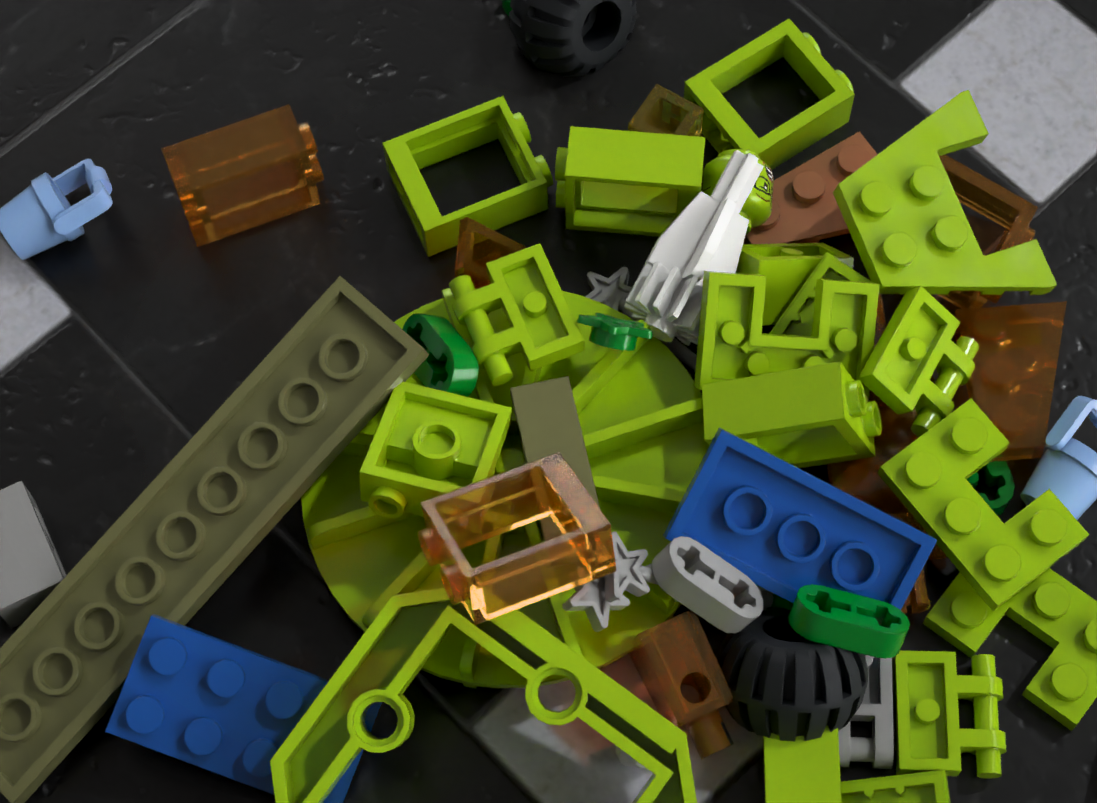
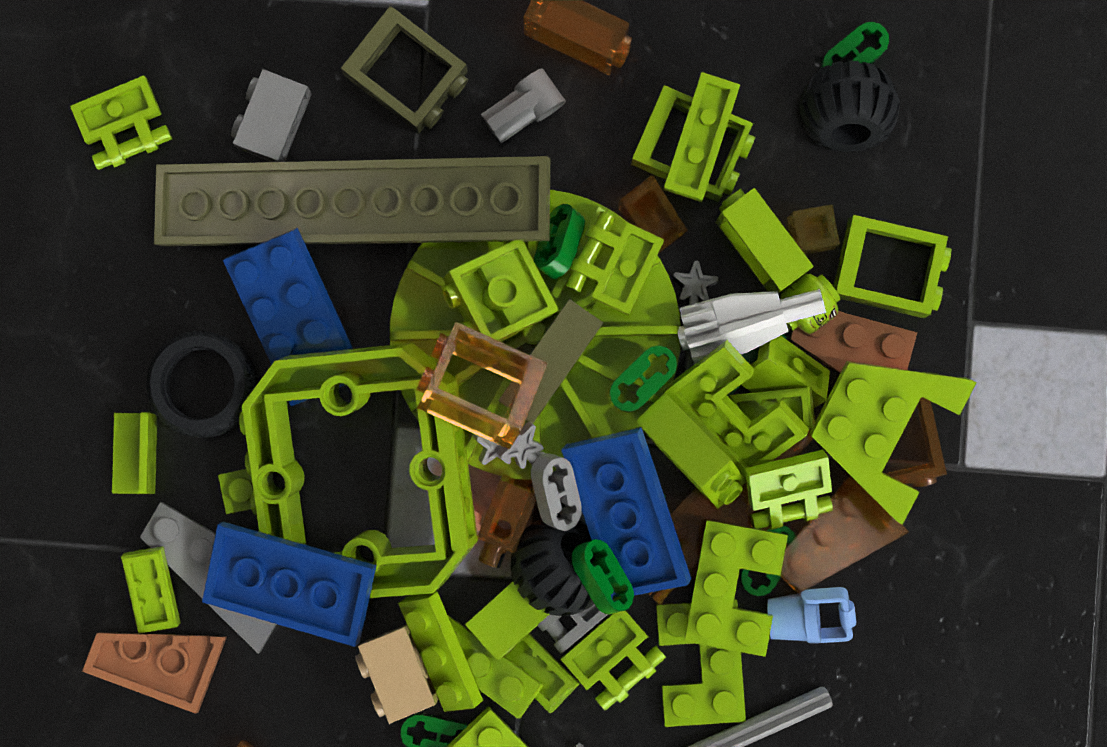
camera: 45 degrees right, 20 degrees up
(116, 423) = (376, 43): none -> olive window
(267, 287) = (532, 100): none -> light grey piece
(470, 144) = (701, 137): none -> lime plate
(614, 332) = (650, 323): green plate -> none
(679, 391) = (636, 371): none -> green beam

